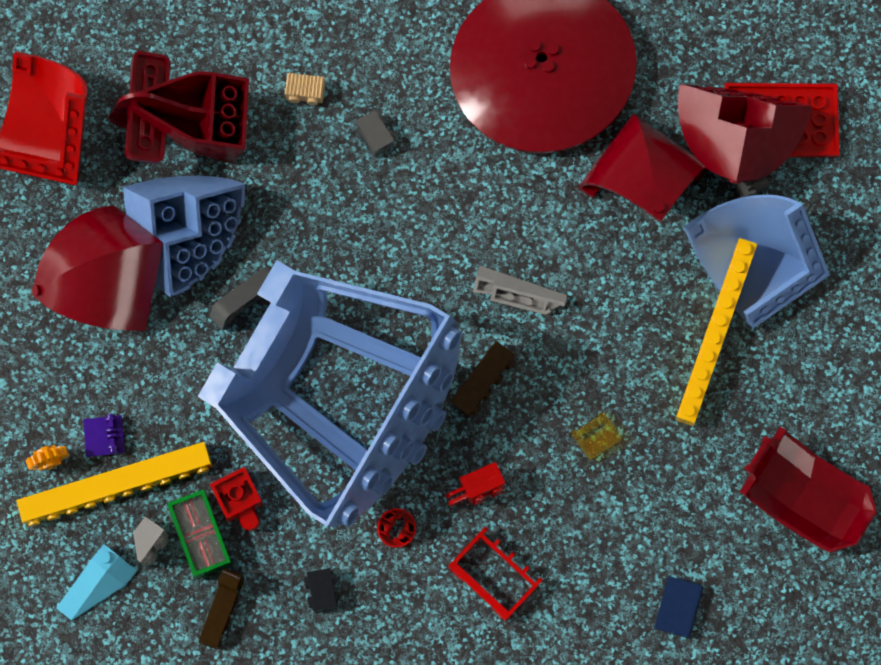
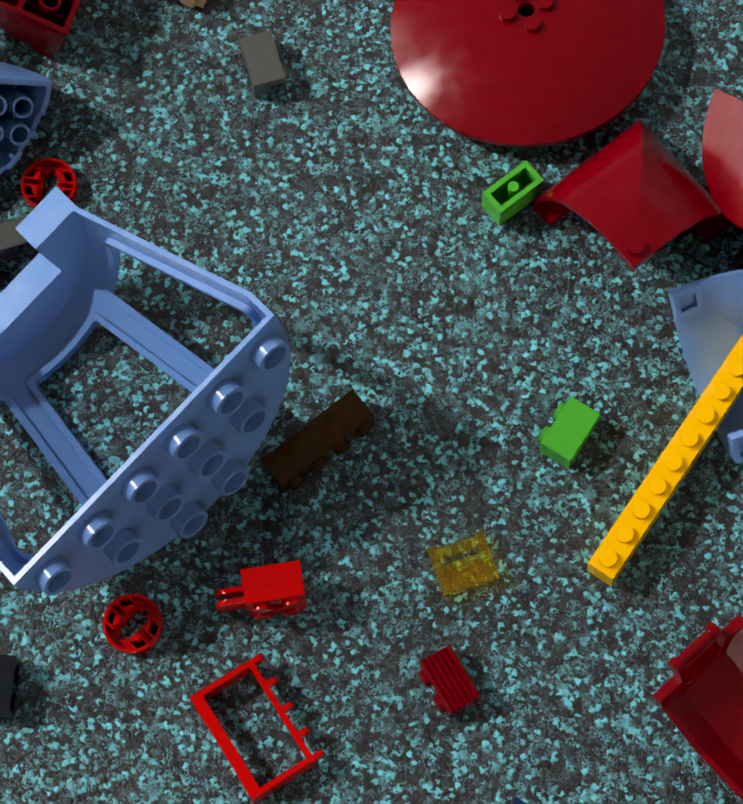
camera: 15 degrees right, 5 degrees down
(249, 240) = (42, 169): none -> red piece
(517, 292) = (403, 330): light grey wedge -> none
(563, 183) = (512, 192): none -> bright green brick
(607, 514) = (448, 681): none -> dark red brick
(641, 333) = (568, 432): none -> bright green brick

